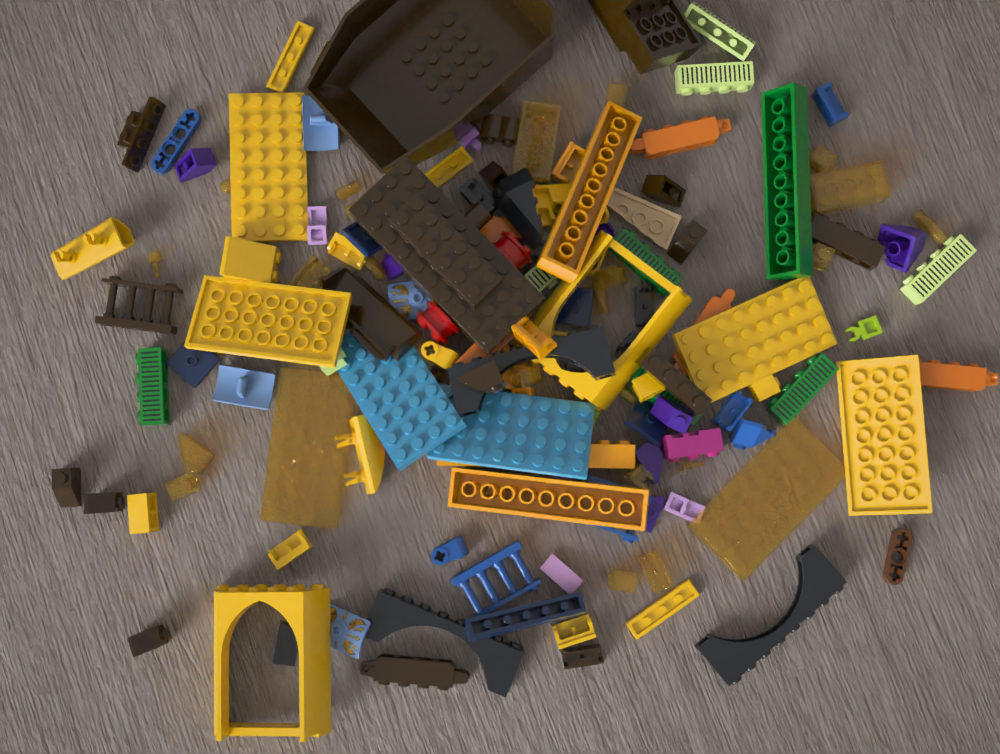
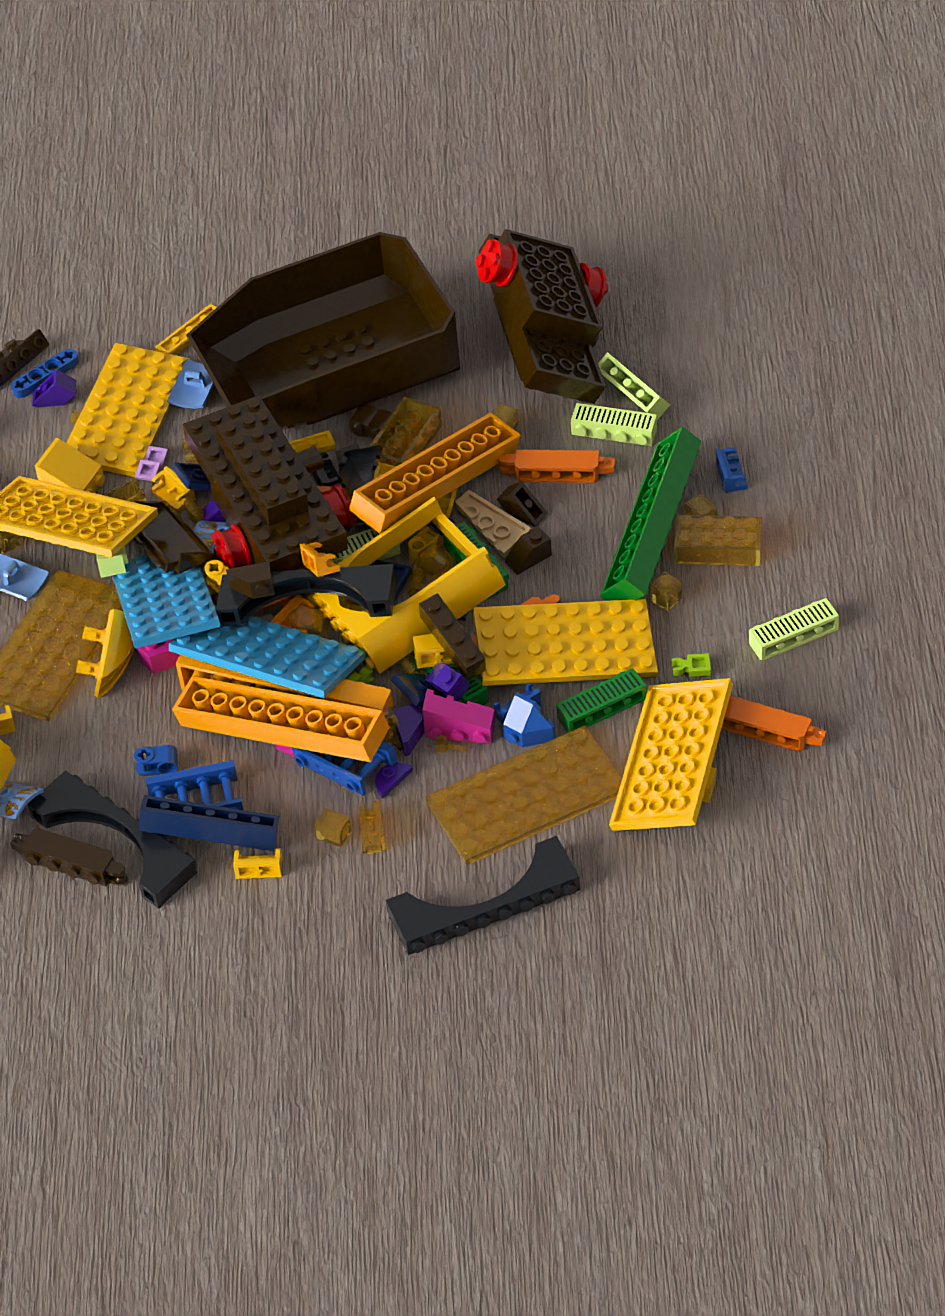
camera: 20 degrees right, 35 degrees down
(471, 140) = (339, 425): medium lavender tile -> none
(561, 574) = (266, 803): lavender slope -> none
(582, 656) = (256, 886): dark brown hinge -> none
(662, 609) = (365, 868): yellow tile -> none
(682, 506) = (425, 777): lavender slope -> none
(764, 388) = (558, 689): yellow brick -> none
(848, 243) = (701, 586): dark brown brick -> none
(889, 559) = (651, 887): reddish brown beam -> none
(902, 245) = (761, 599): dark purple slope -> none
(930, 226) = (799, 591): clear yellow pin -> none

